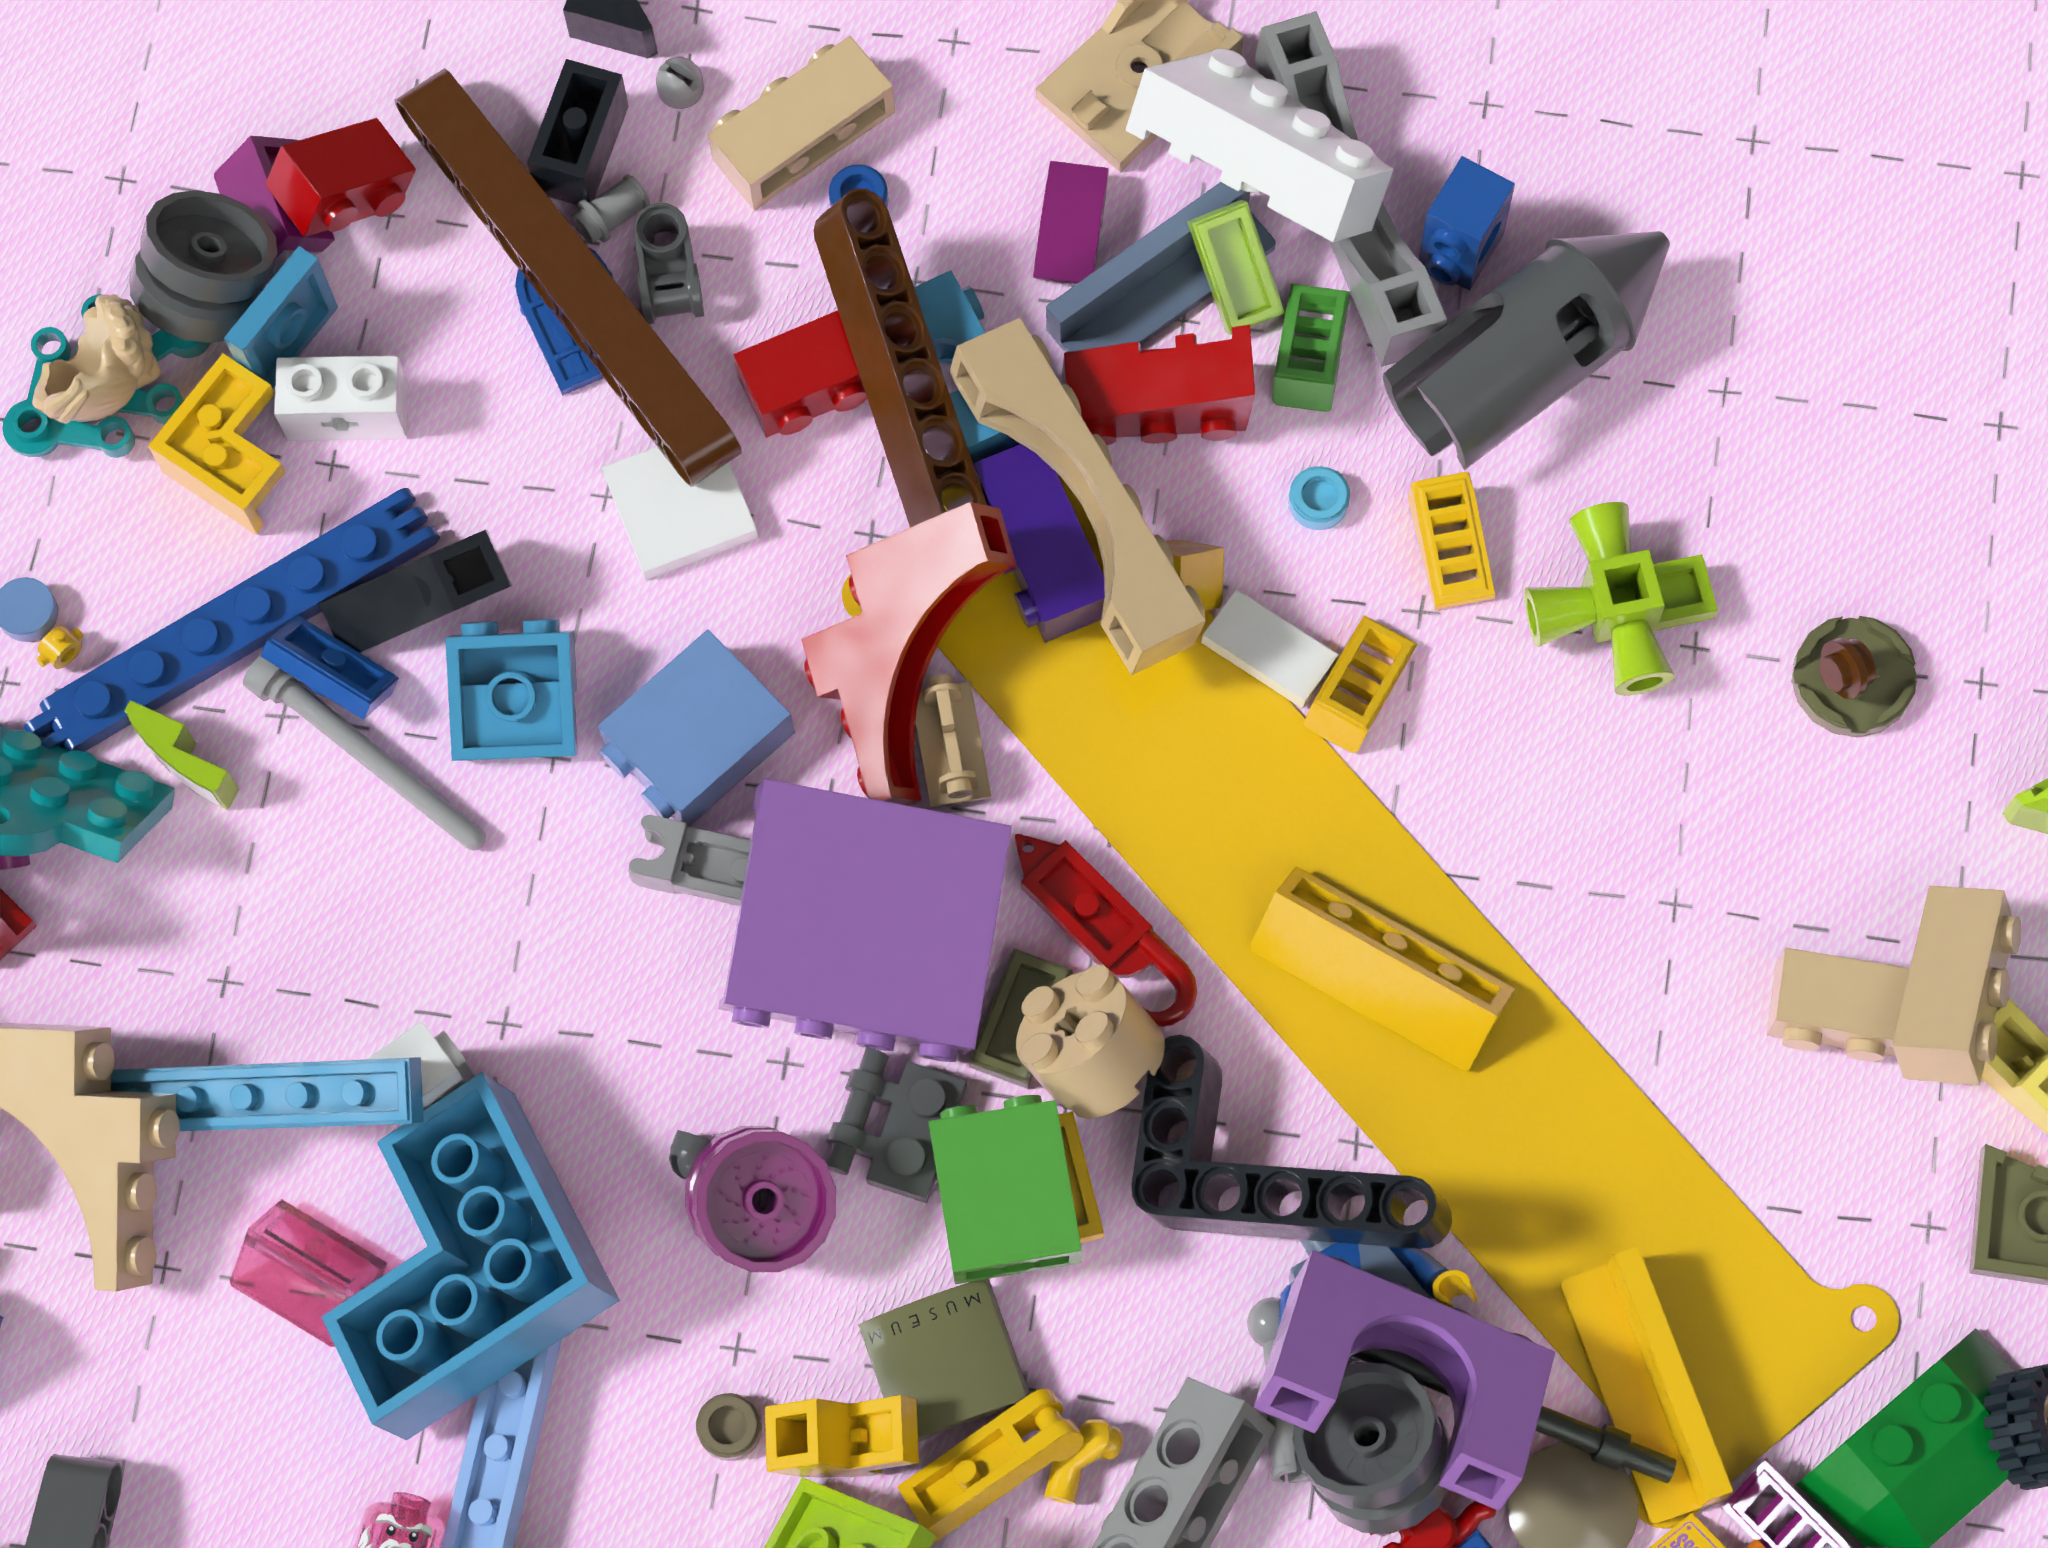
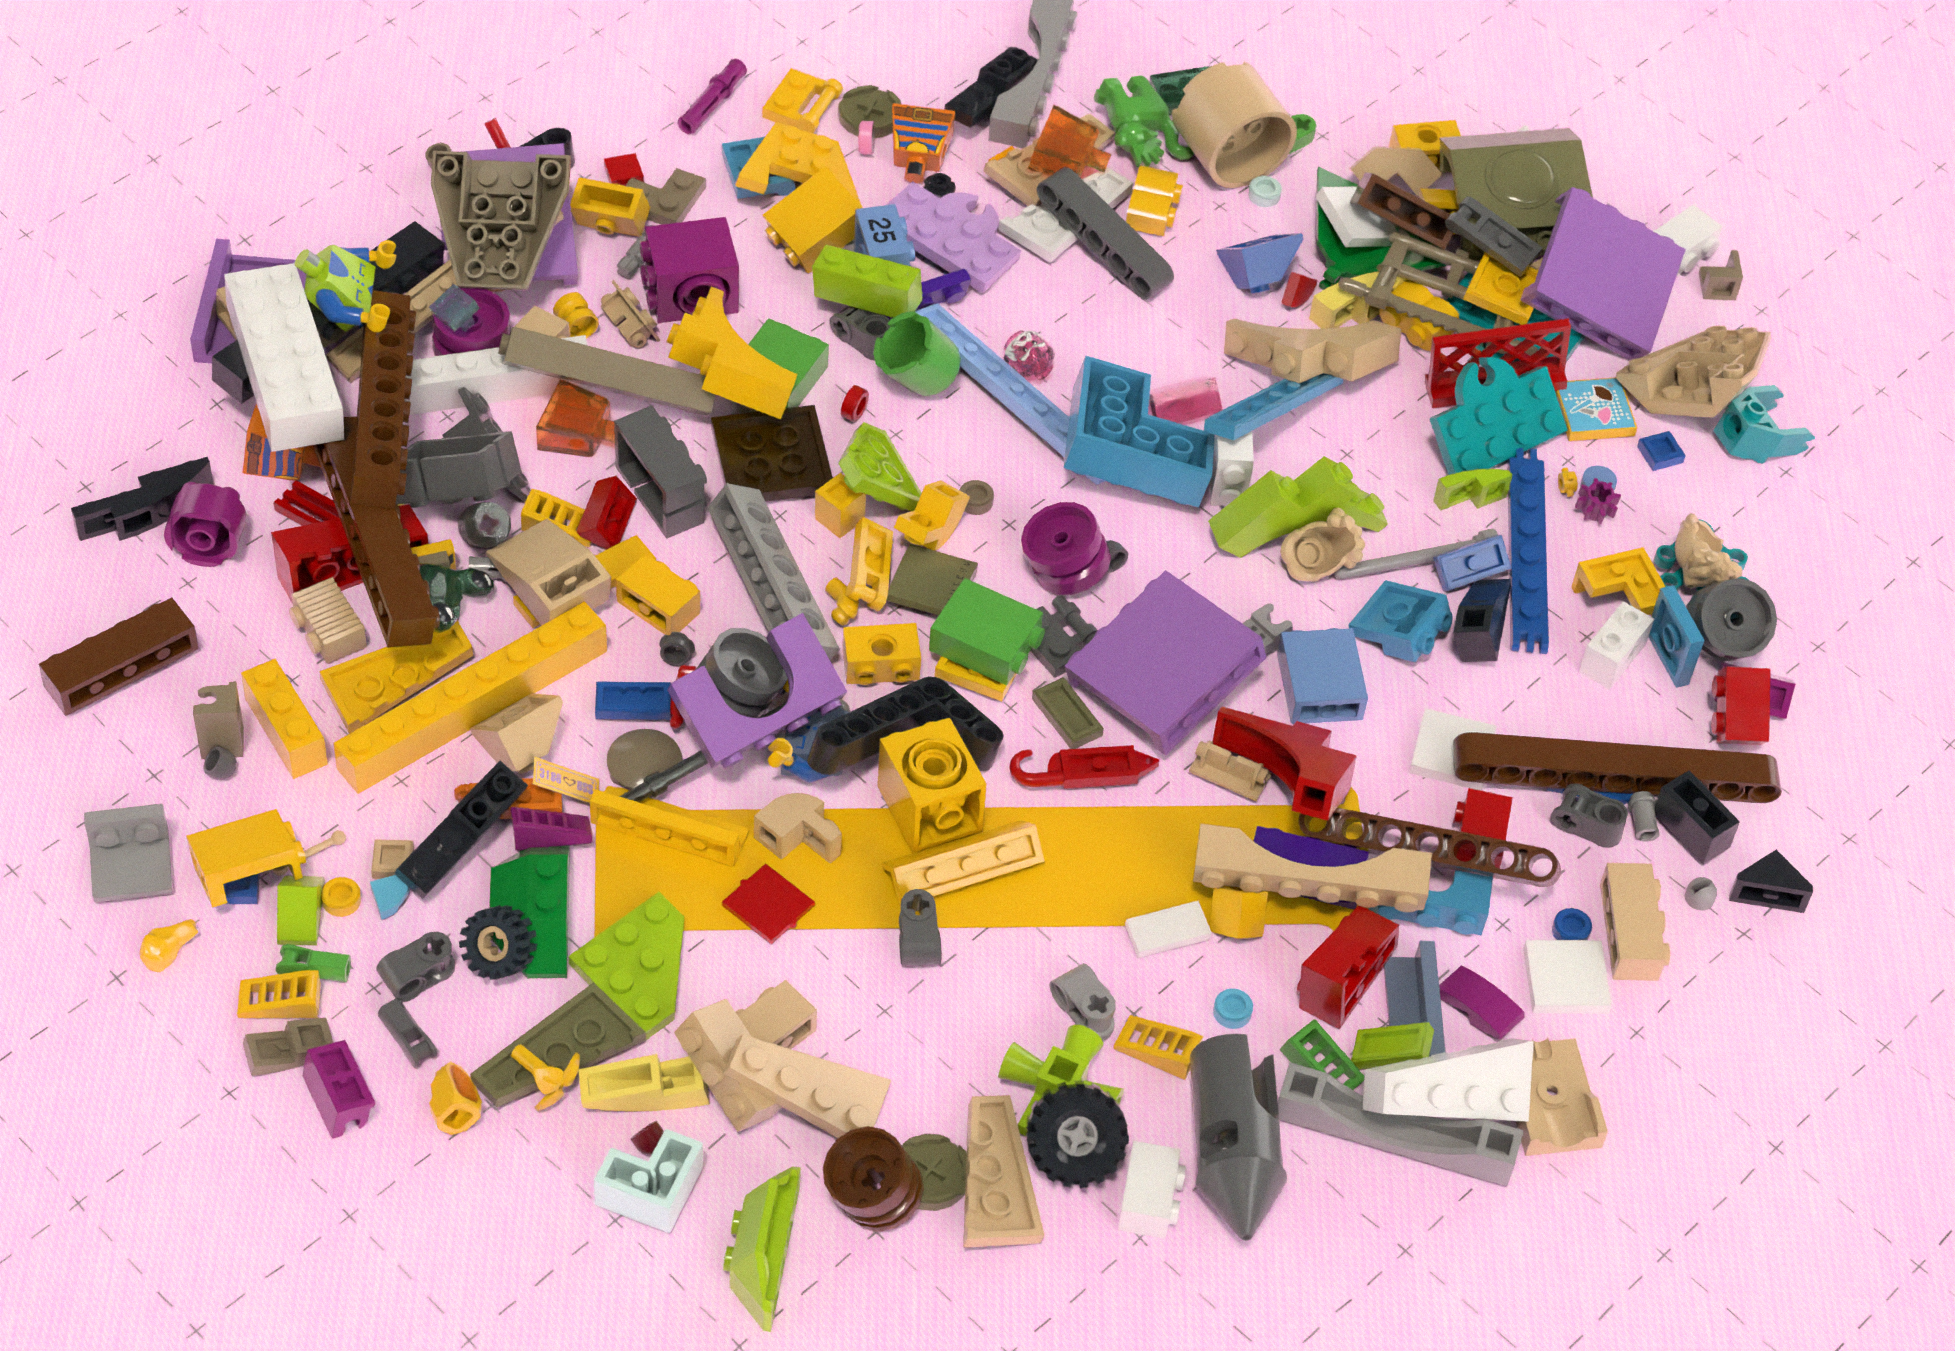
camera: 120 degrees right, 20 degrees down
(77, 563) = (1597, 501): none -> magenta gear
(437, 937) = (1280, 505): none -> lime arch
(466, 867) = (1323, 547): none -> tan hair
(942, 156) = (1567, 977): none -> white tile
(1088, 1042) = (1028, 705): tan brick -> none
(1149, 1361) = (881, 653): none -> yellow brick
(1316, 1109) = (931, 784): none -> yellow brick
(1342, 717) = (1116, 924): yellow slope -> none
(1465, 224) = (1331, 1155): blue brick -> none
(1468, 668) = (1085, 999): none -> light grey piece
(1516, 1222) = (796, 820): none -> tan brick
(1546, 929) = (919, 933): none -> dark grey piece
(1651, 1164) = (768, 903): none -> red piece
(1669, 405) = (1150, 1190): none -> white brick
(1693, 513) = (1087, 1156): none -> black wheel
(1812, 578) = (998, 1184): none -> tan wing
(1847, 667) = (935, 1149): reddish brown plate -> none
(1886, 1248) = (638, 962): none -> lime plate
(1898, 864) = (809, 1086): none -> tan wing
(1962, 695) = (860, 1163): none -> reddish brown wheel

